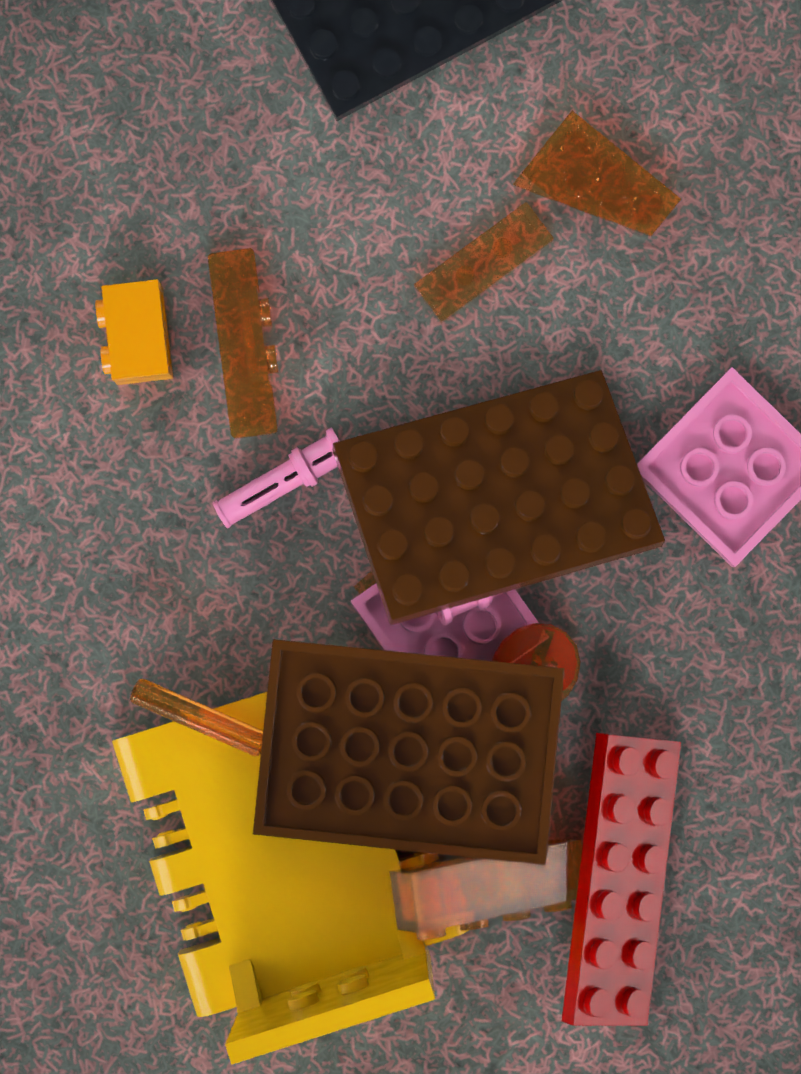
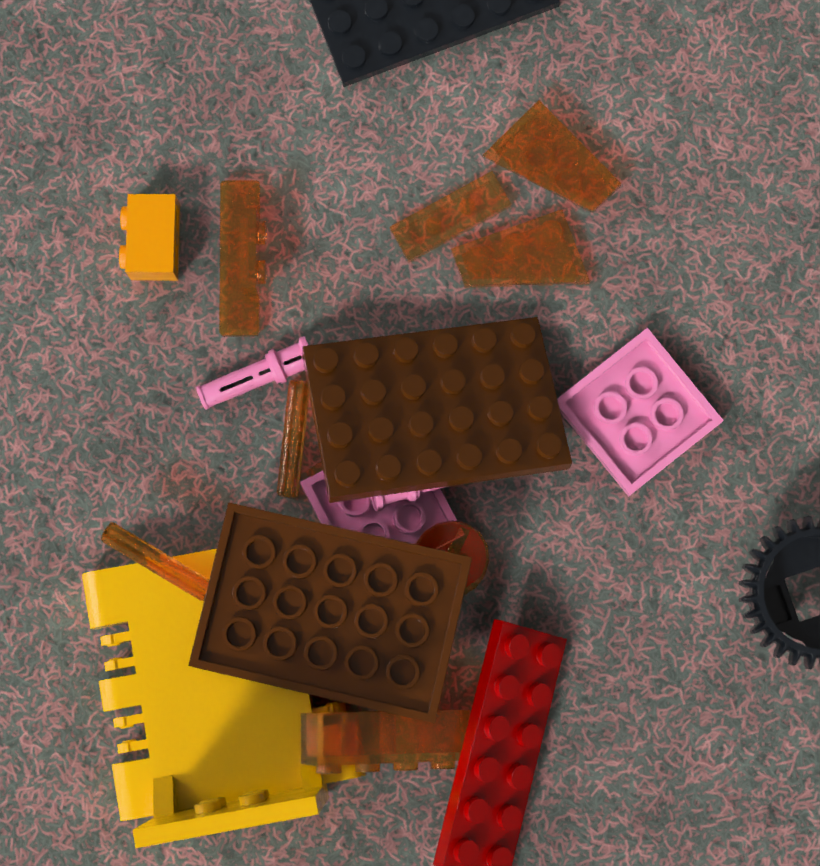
camera: 10 degrees right, 5 degrees down
(334, 549) = (293, 439): none -> clear orange axle
(575, 298) = (525, 254): none -> clear orange wing

